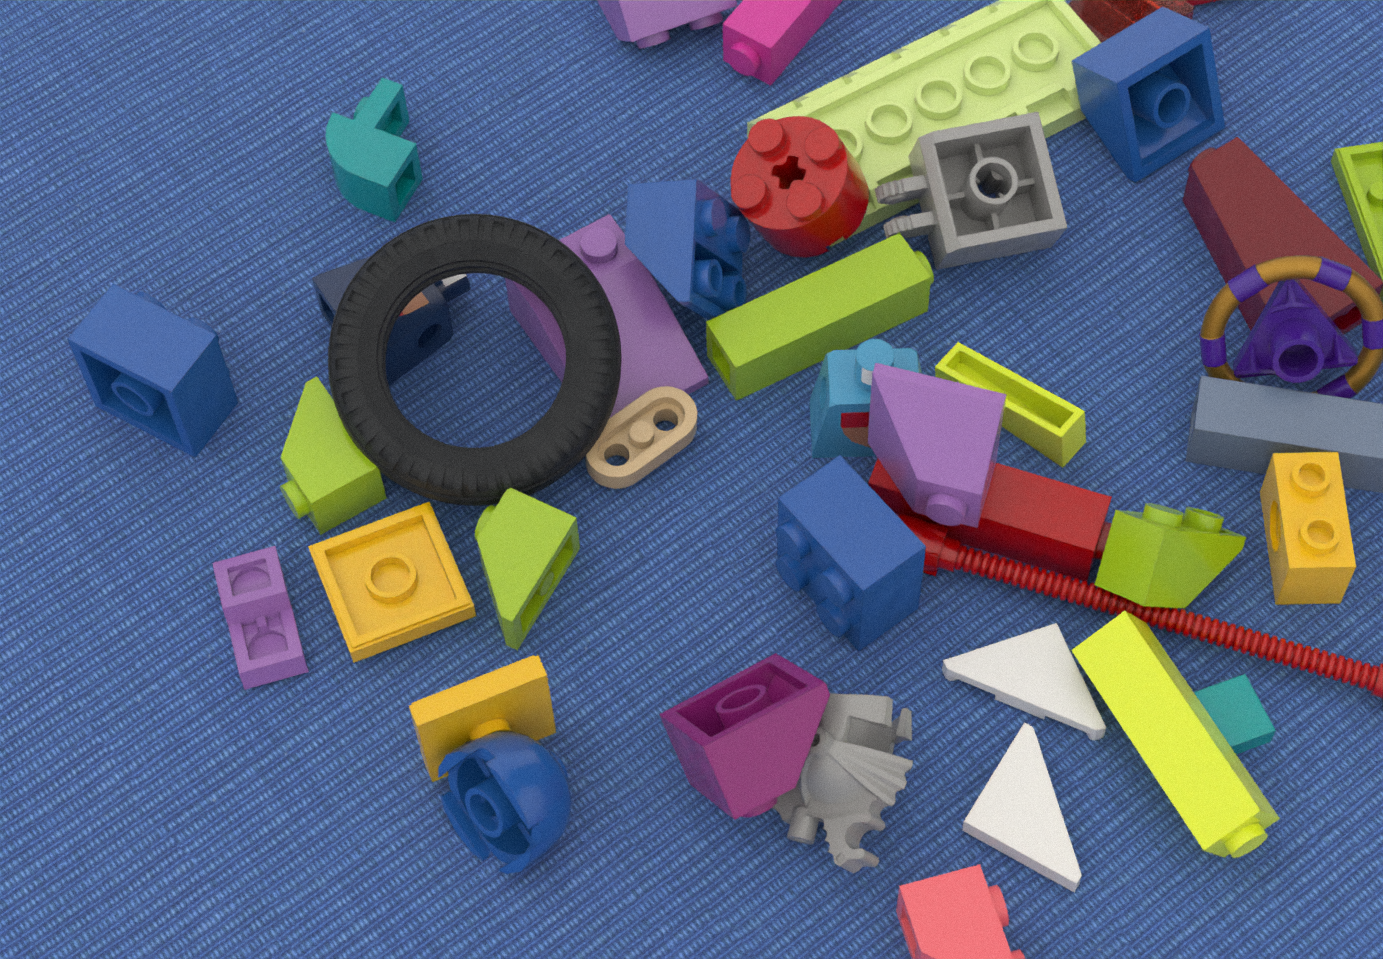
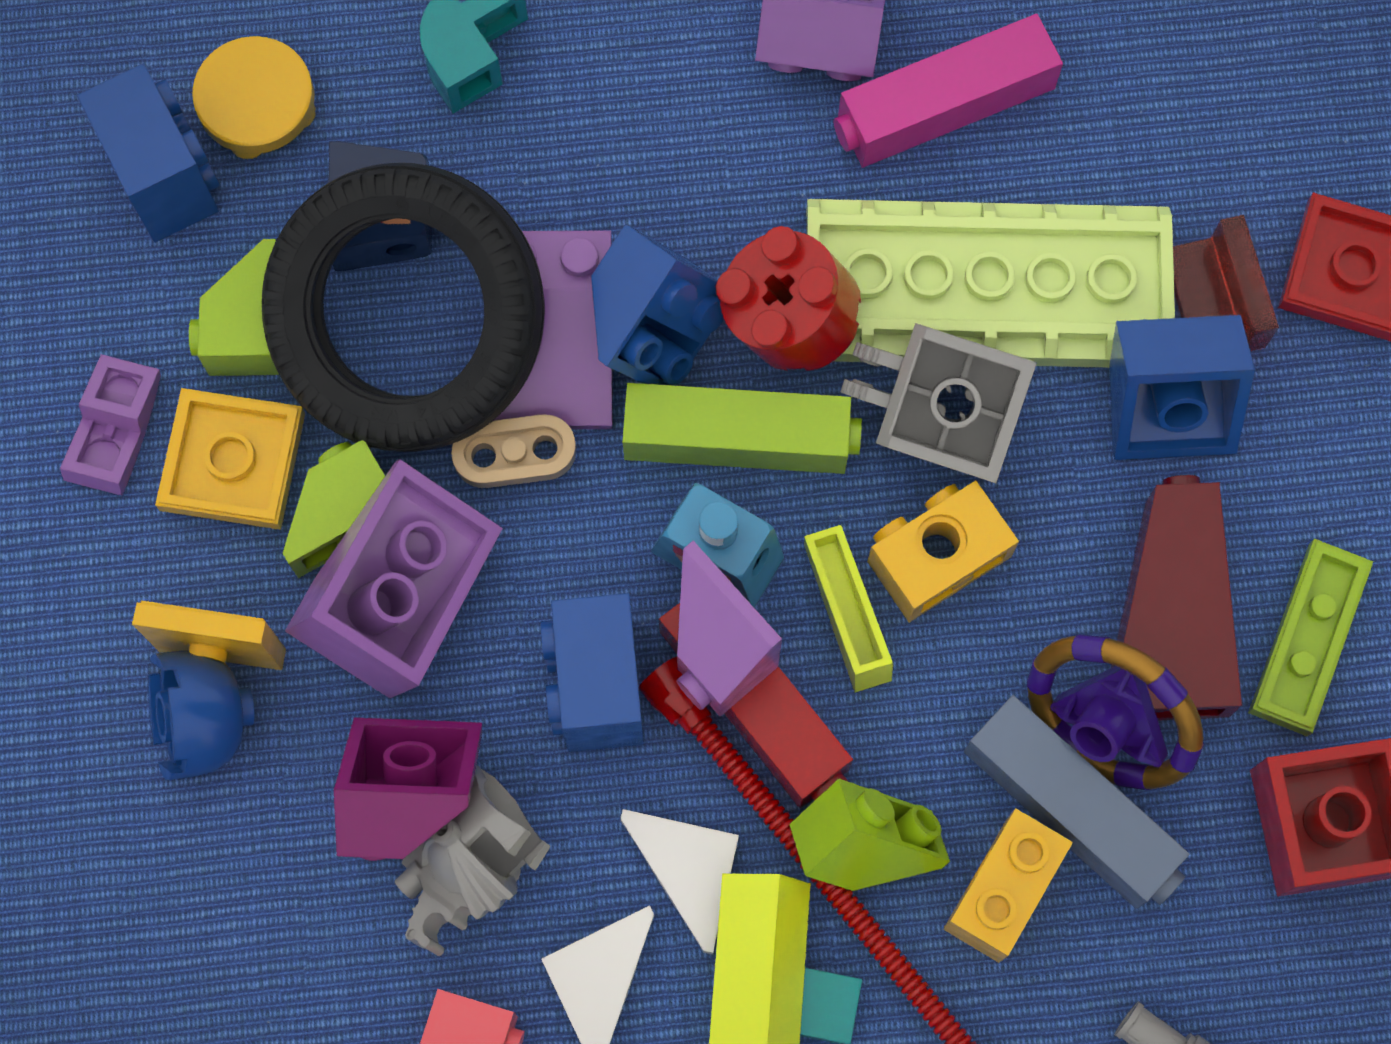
camera: 30 degrees right, 15 degrees up
(216, 282) = (253, 95): none -> yellow tile
(619, 588) = (395, 582): none -> medium lavender slope
(1046, 343) = (922, 581): none -> yellow brick

